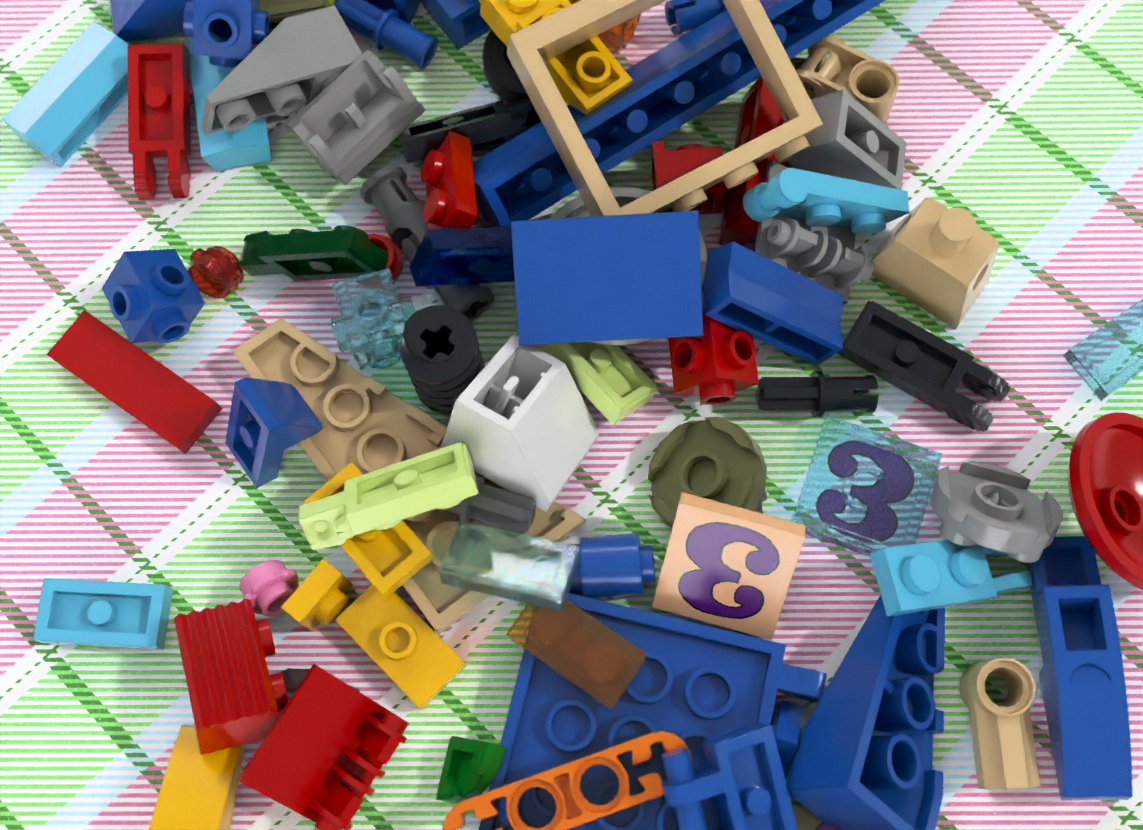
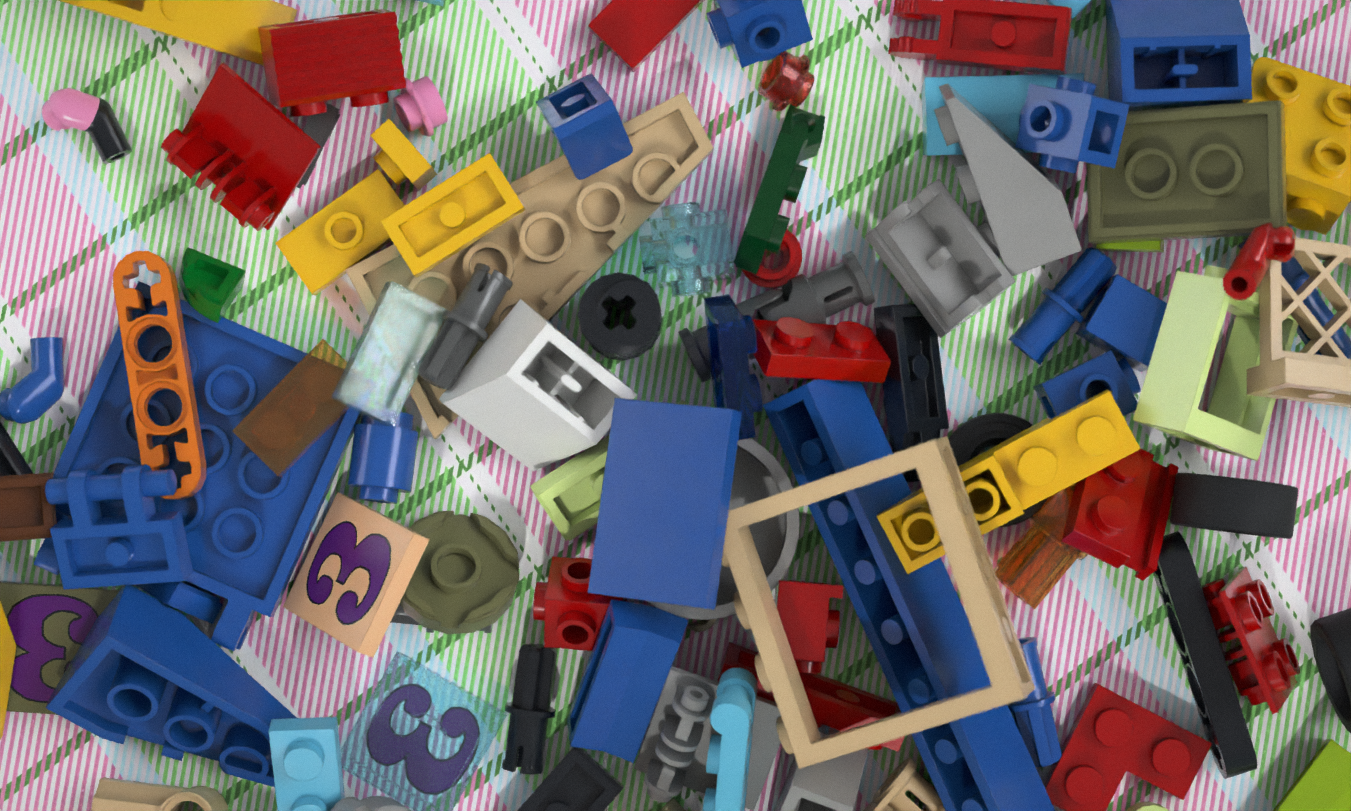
camera: 95 degrees right, 15 degrees up
(390, 495) = (469, 246): yellowish green hinge -> none

